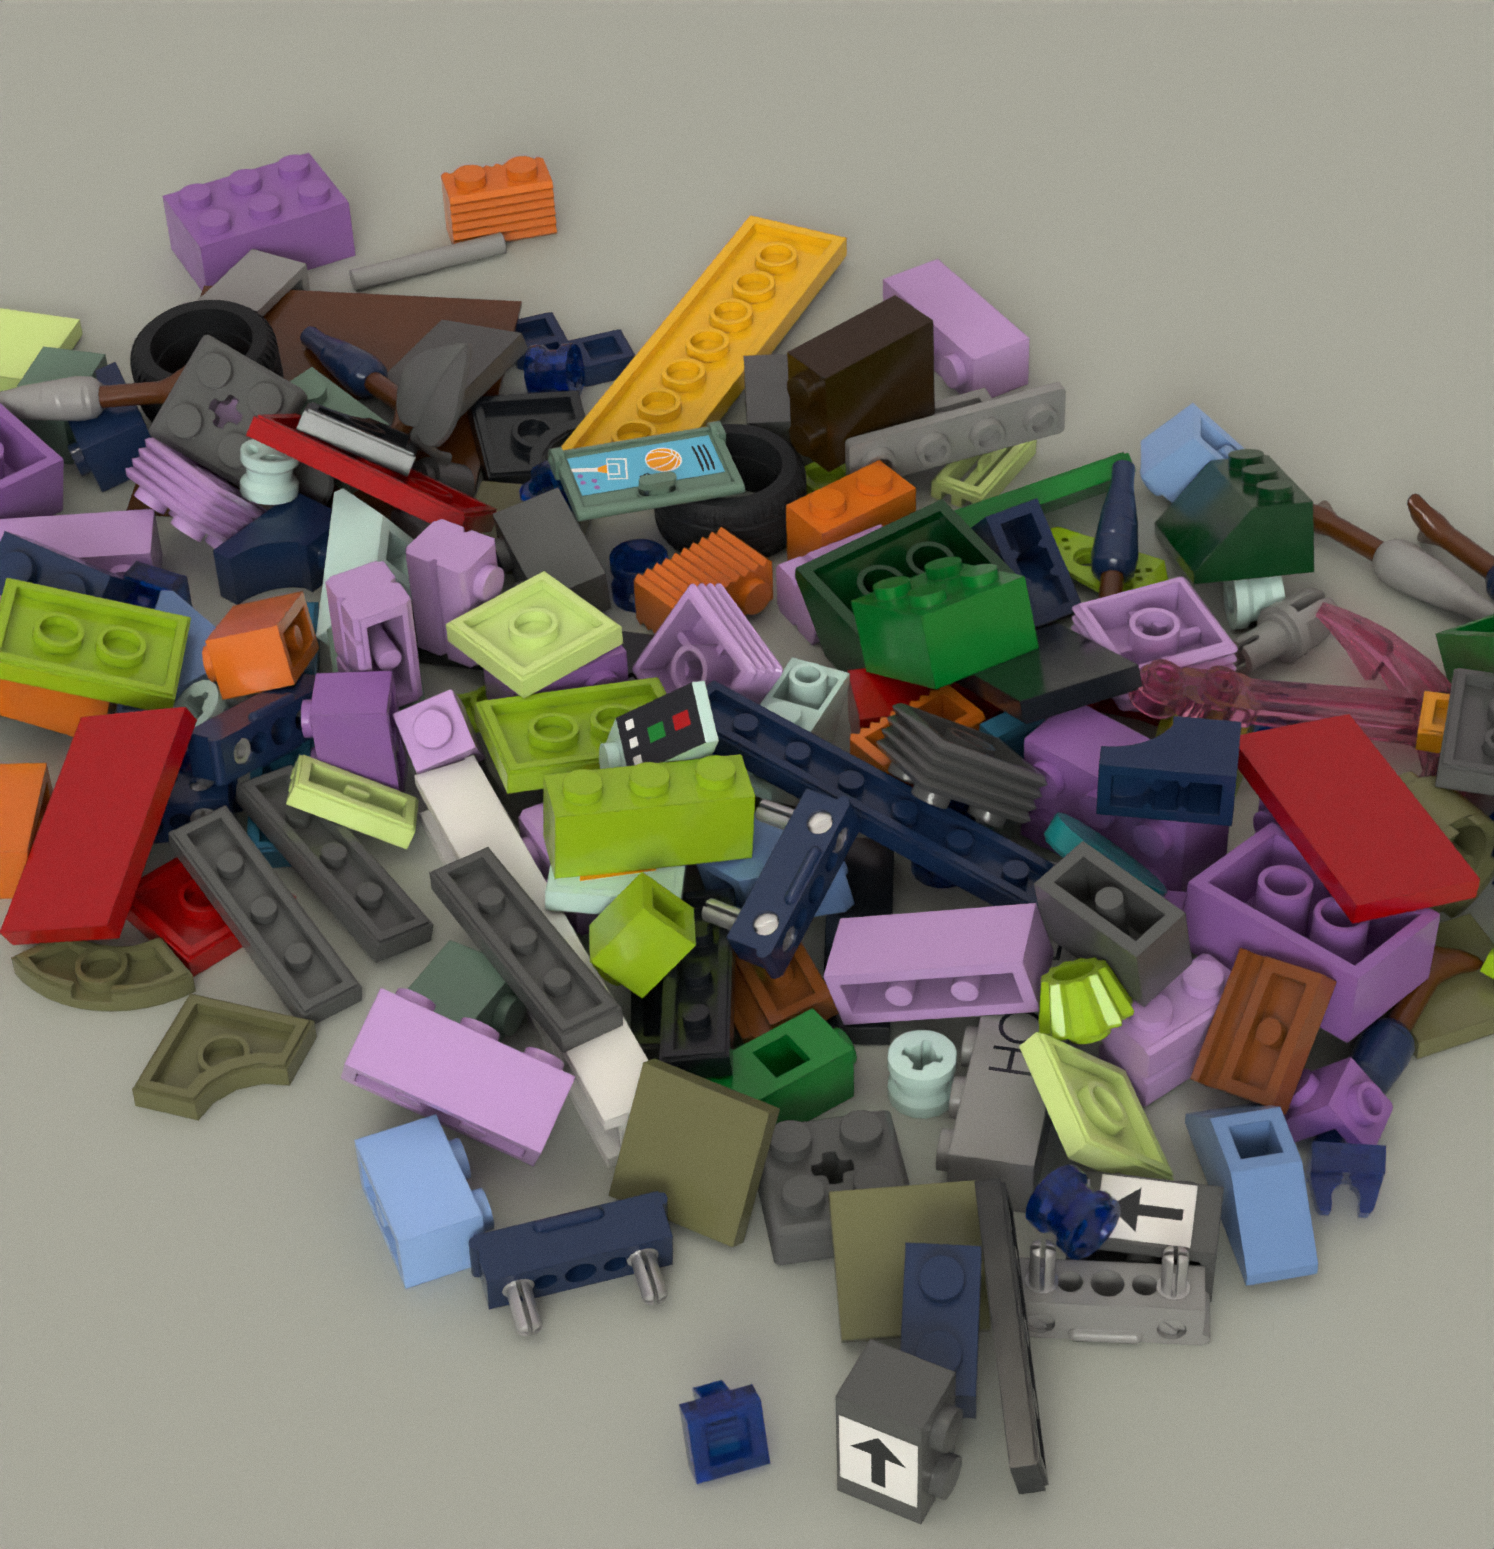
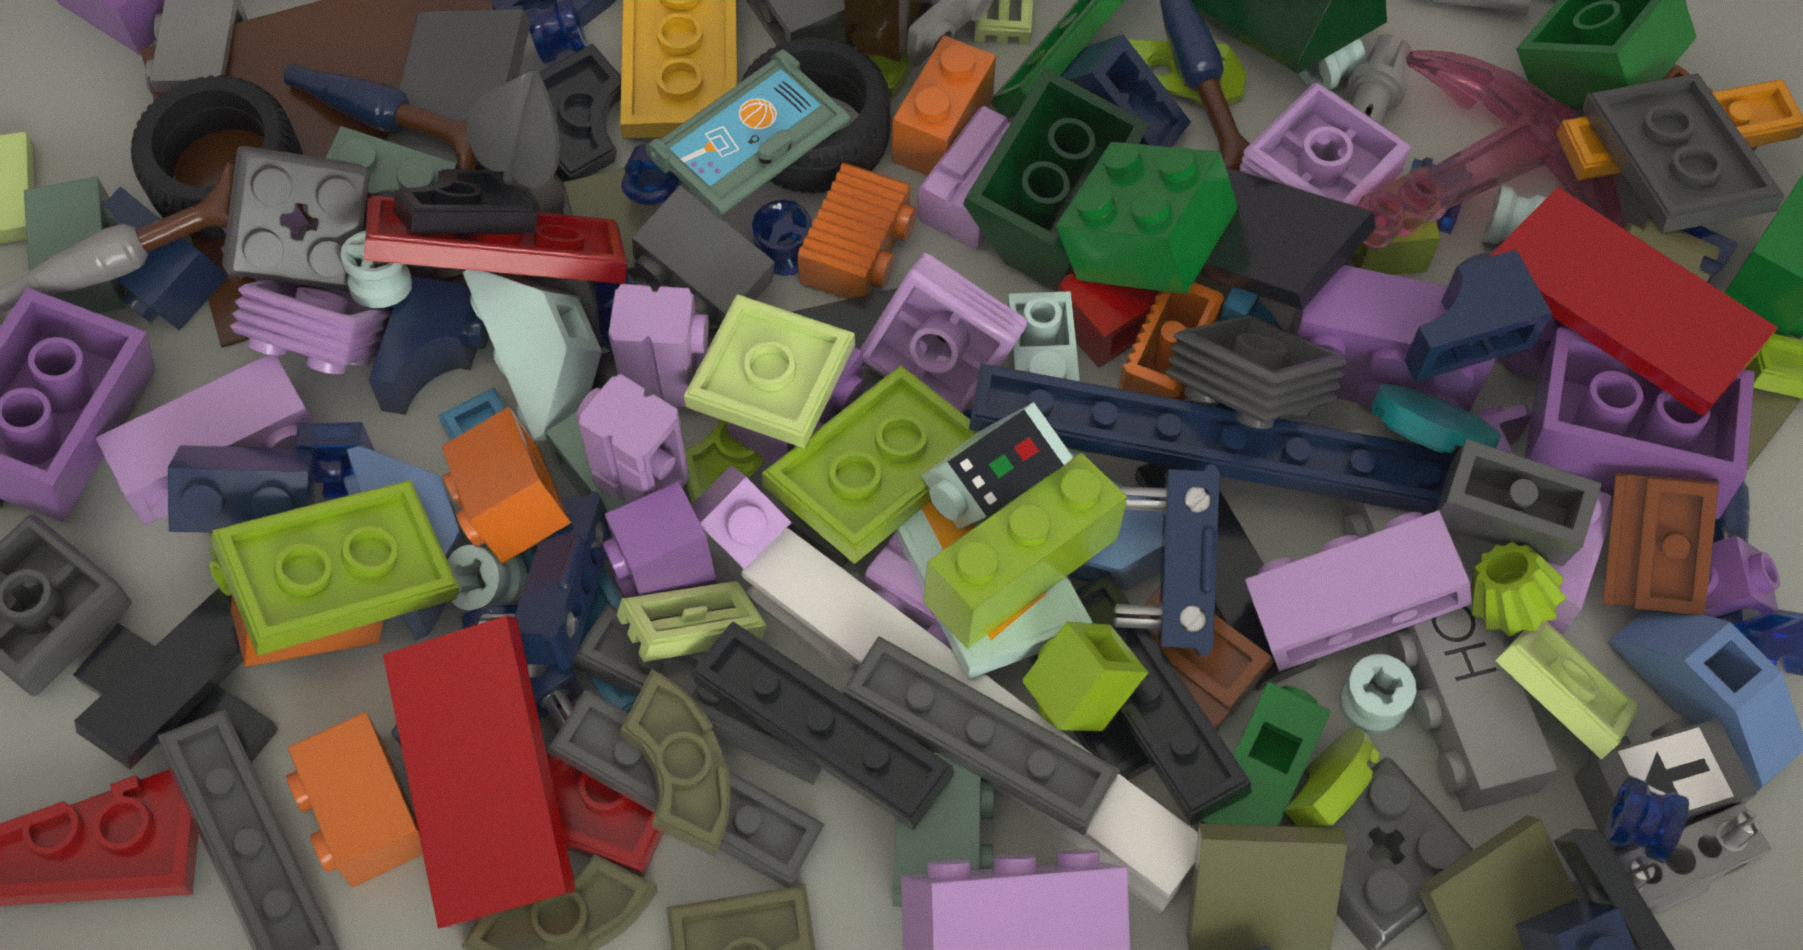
camera: 30 degrees left, 20 degrees up
(269, 885) = (685, 761): none -> olive tile
(400, 898) = (823, 724): none -> black tile
(818, 1090) = (1334, 780): none -> lime tile

